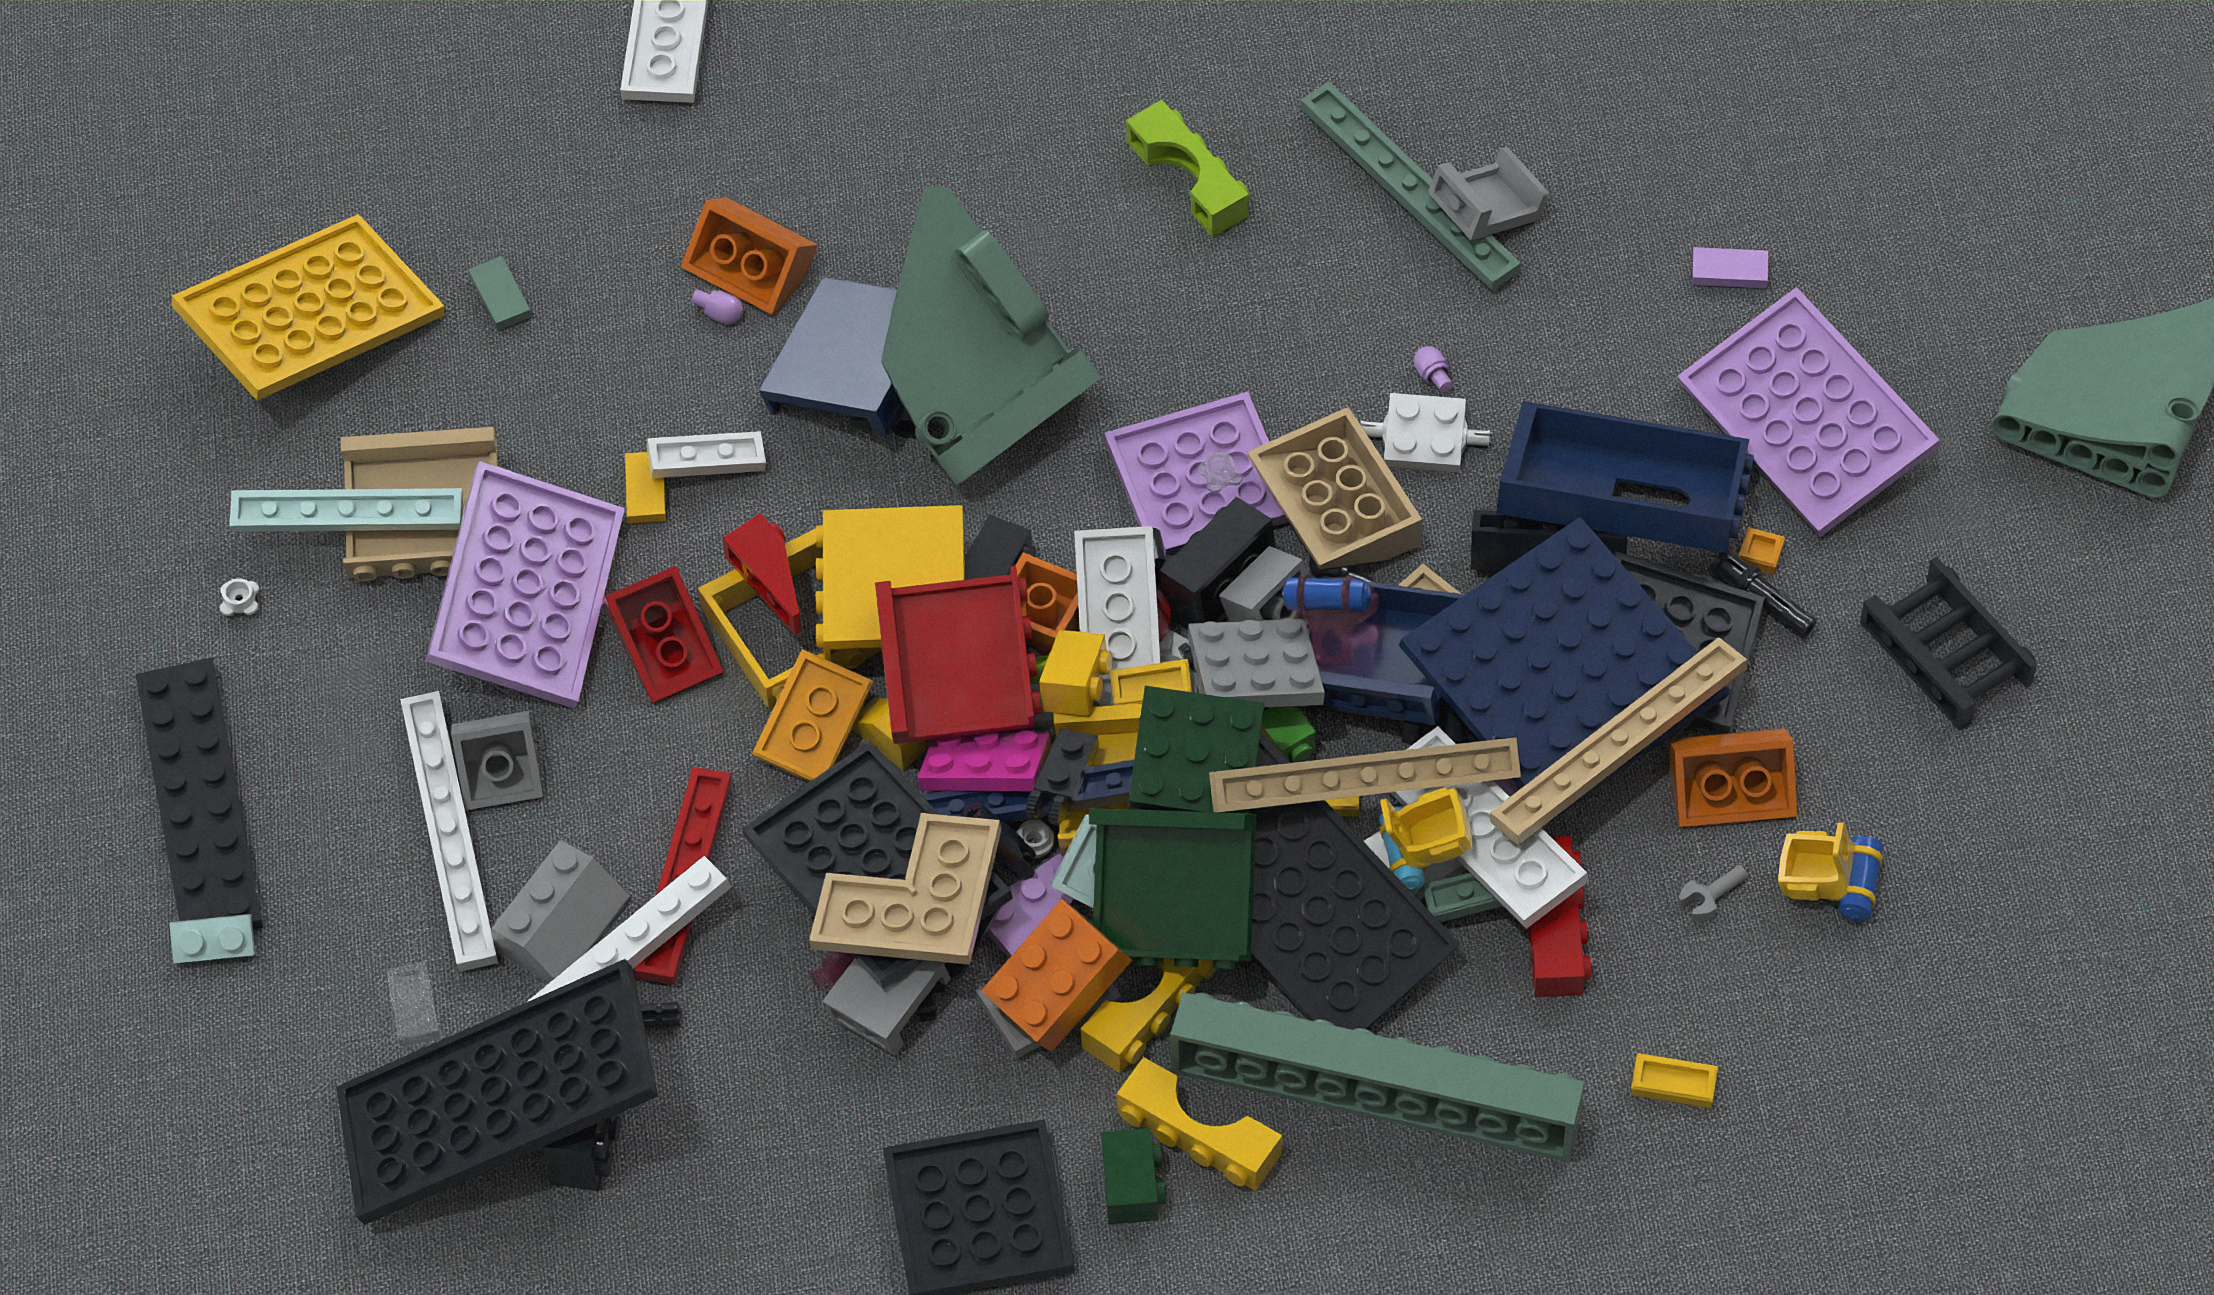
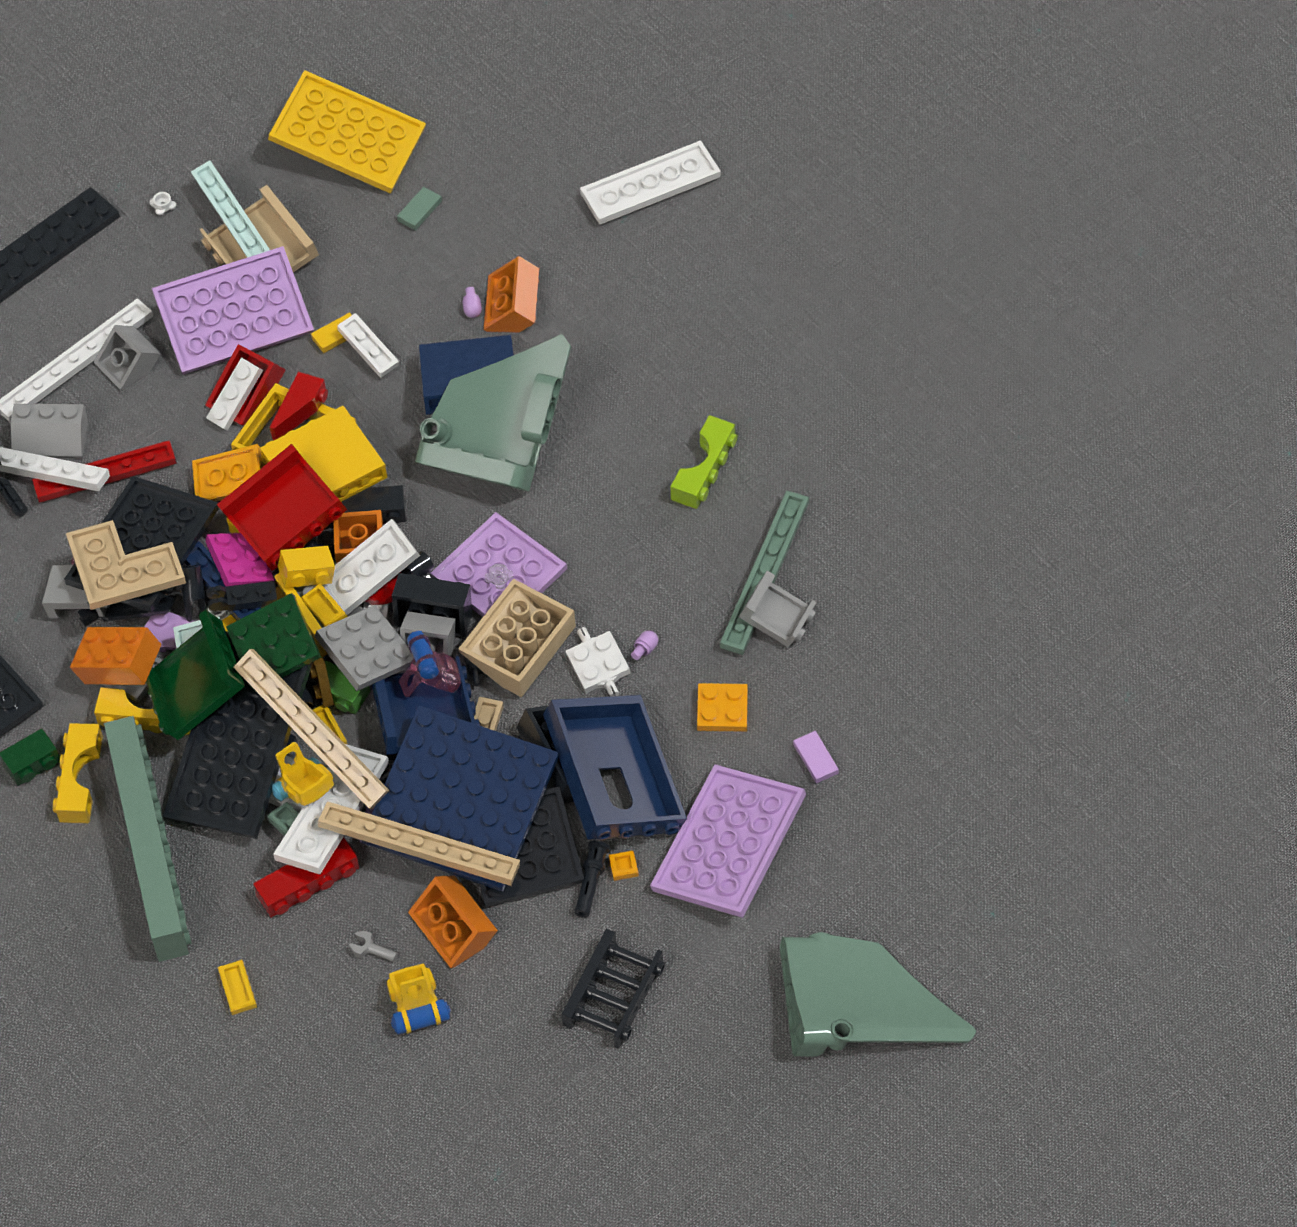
camera: 60 degrees right, 0 degrees up
(676, 648) = (234, 394): none -> white plate
(1586, 331) = (722, 707): none -> light orange plate

